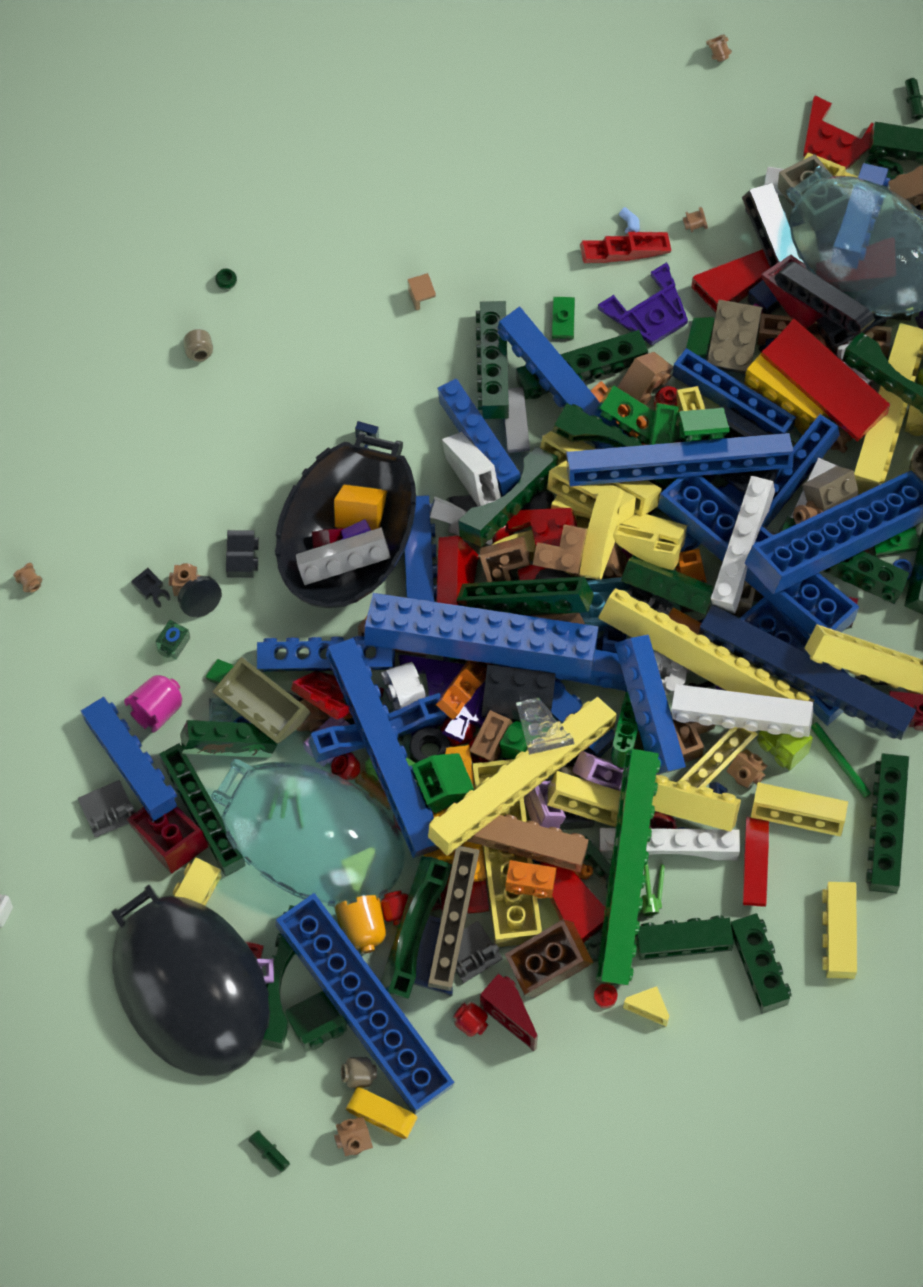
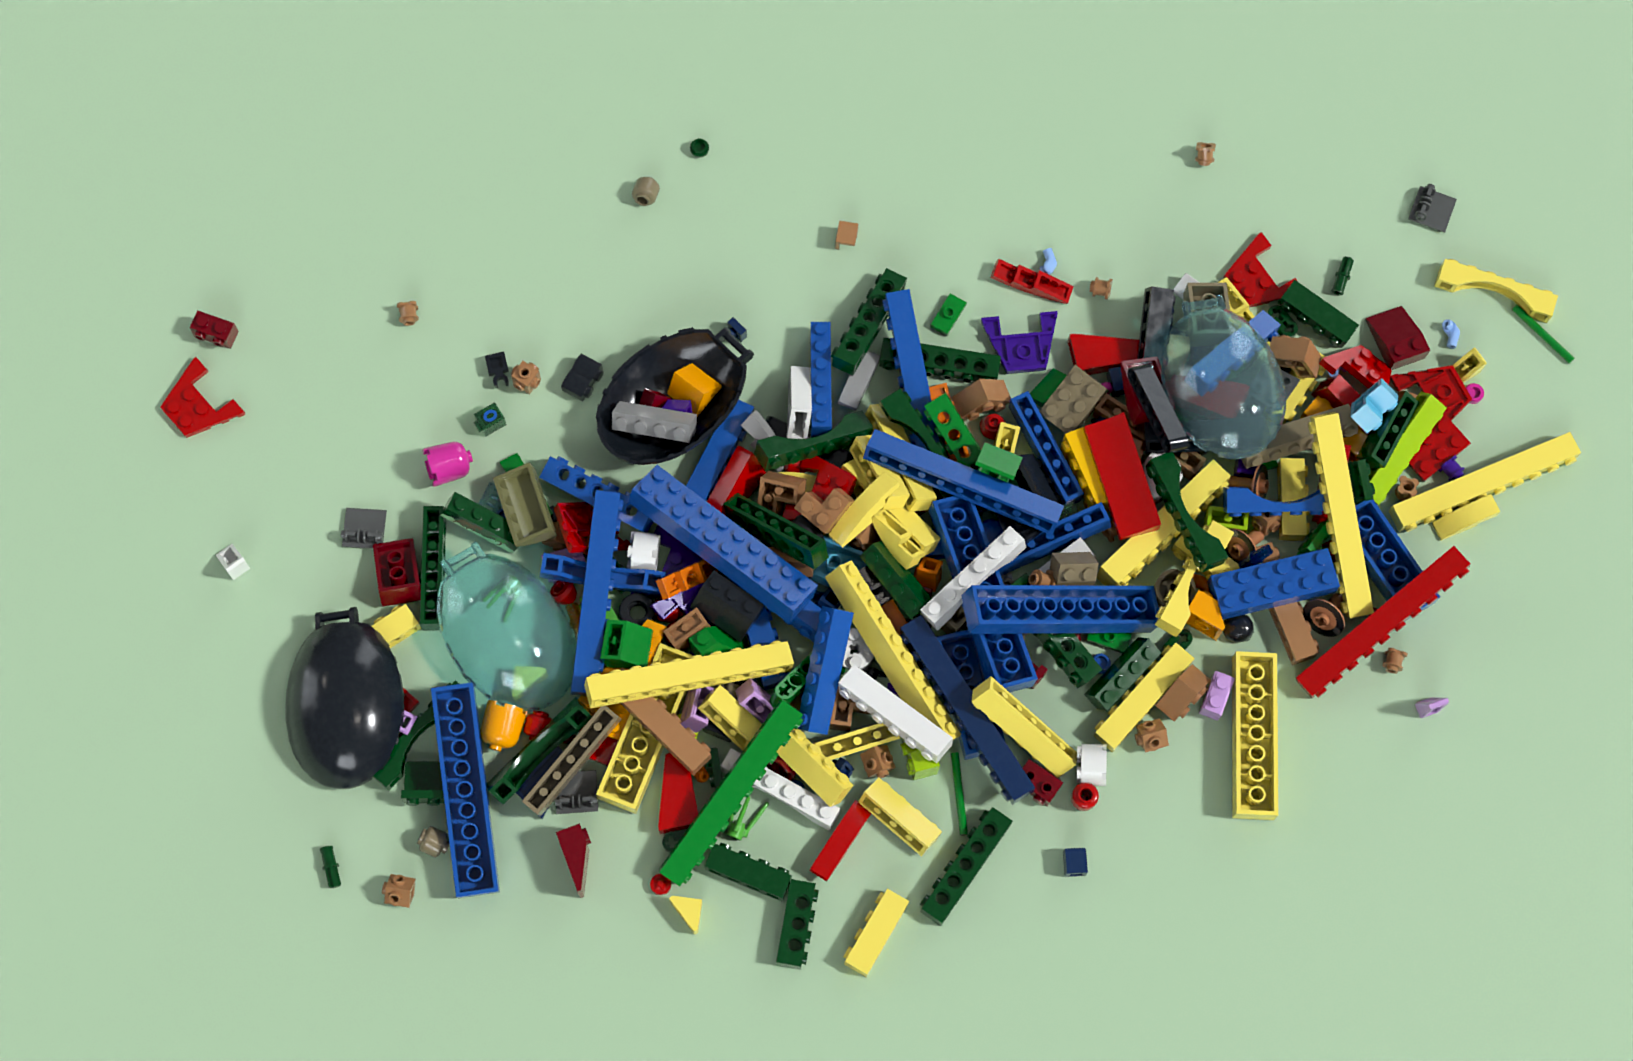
camera: 25 degrees right, 5 degrees up
(129, 759) = (400, 497): blue brick -> none
(199, 596) = (528, 395): black tile -> none
(381, 1113) = (432, 883): yellow beam -> none
(471, 1019) = (543, 846): red head -> none
(530, 879) = (648, 761): orange brick -> none
(541, 728) = (724, 643): clear wing -> none
(548, 958) = (629, 831): reddish brown brick -> none
(663, 424) = (968, 446): green plate -> none

